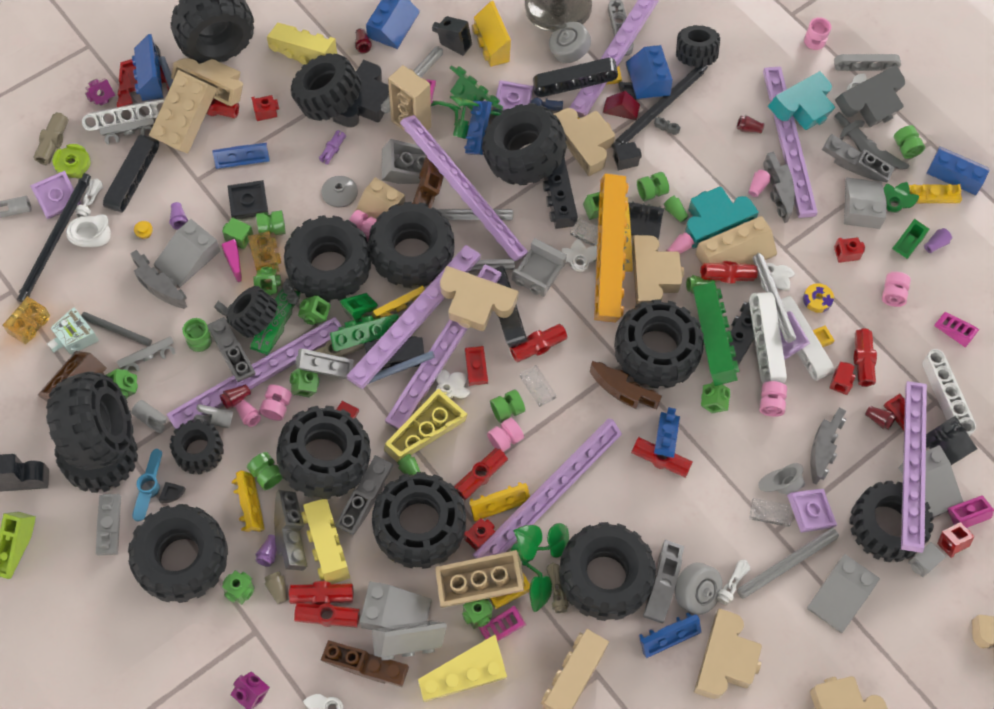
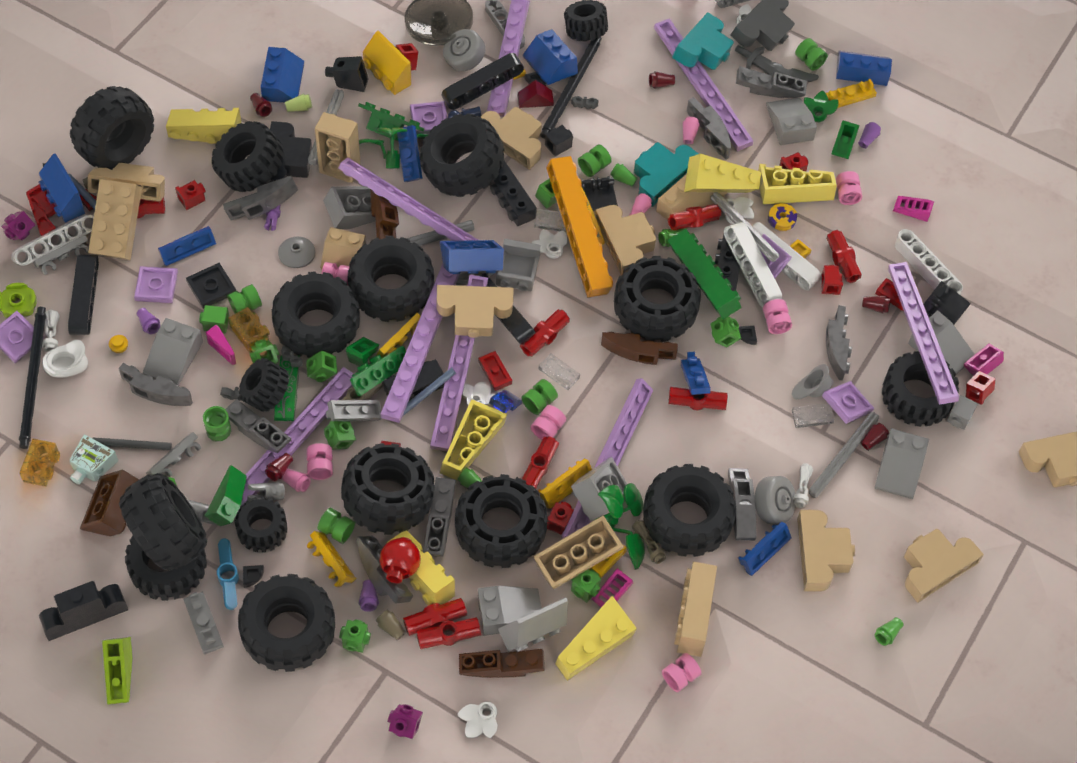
camera: 20 degrees left, 5 degrees down
(175, 410) = (227, 498): none -> green slope
(200, 183) = (156, 284): none -> lavender tile
(304, 528) = (399, 559): none -> red brick
(328, 132) = (266, 199): none -> flat silver slope
(398, 50) = (299, 103): none -> yellowish green cone
(472, 399) = (505, 400): none -> clear blue slope
(494, 246) = (472, 256): none -> blue slope
(516, 32) = (410, 53): none -> red brick
(533, 510) = (590, 484): none -> light grey slope
(737, 407) = (748, 334): none -> black tile
(766, 238) = (717, 175): none -> light yellow wedge
(828, 554) = (876, 435): none -> dark red cone
(842, 270) = (795, 185): none -> light yellow wedge

